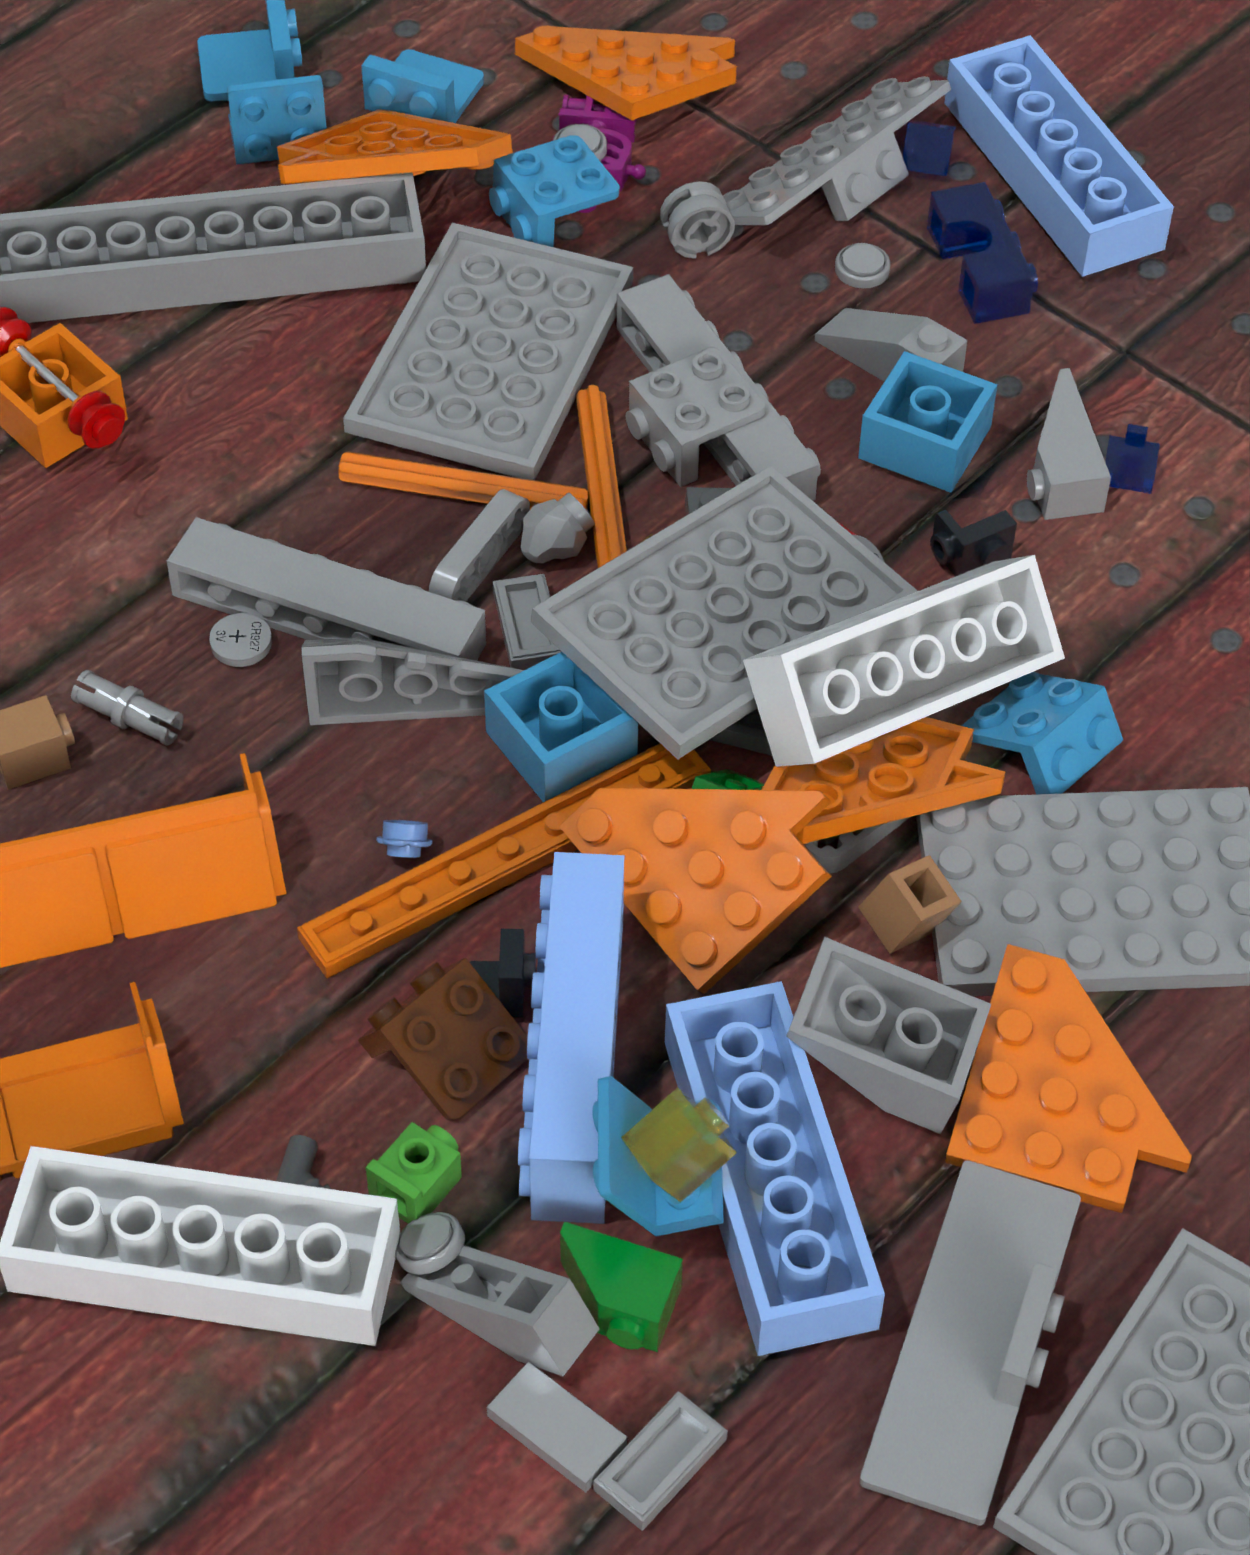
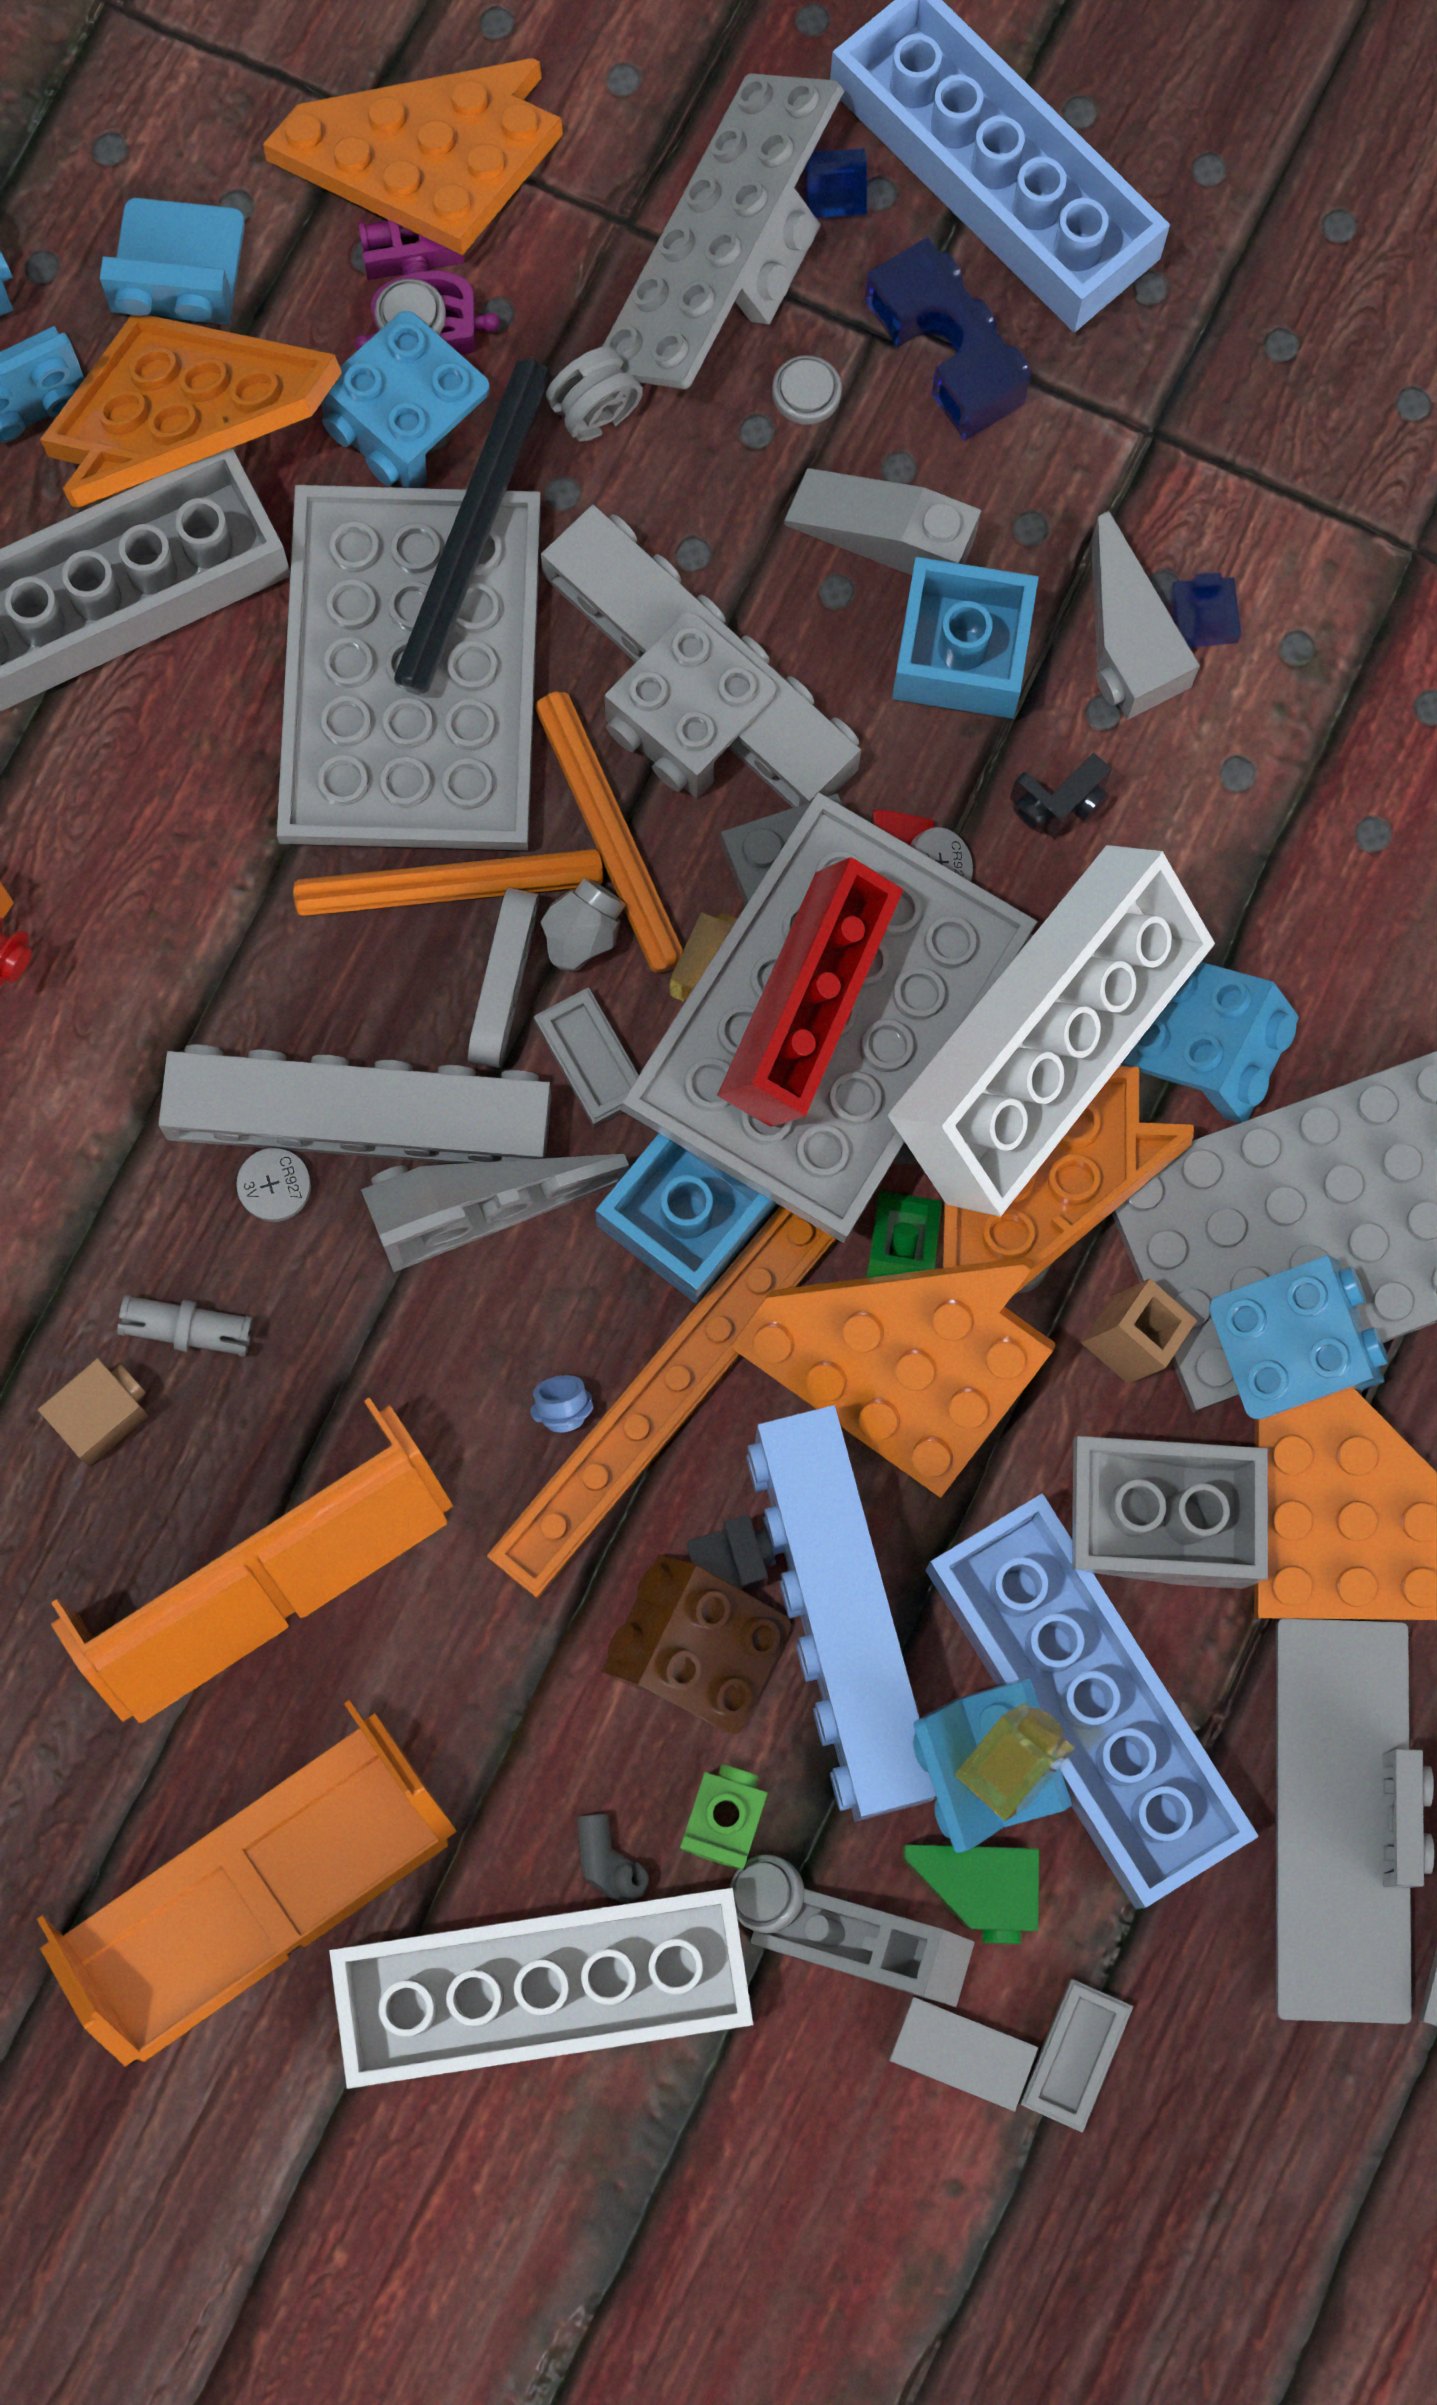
camera: 20 degrees left, 25 degrees up
(570, 270) = (472, 526): none -> black axle
(709, 562) = (810, 992): none -> red brick
(1046, 931) = (1298, 1337): none -> dark azure bracket

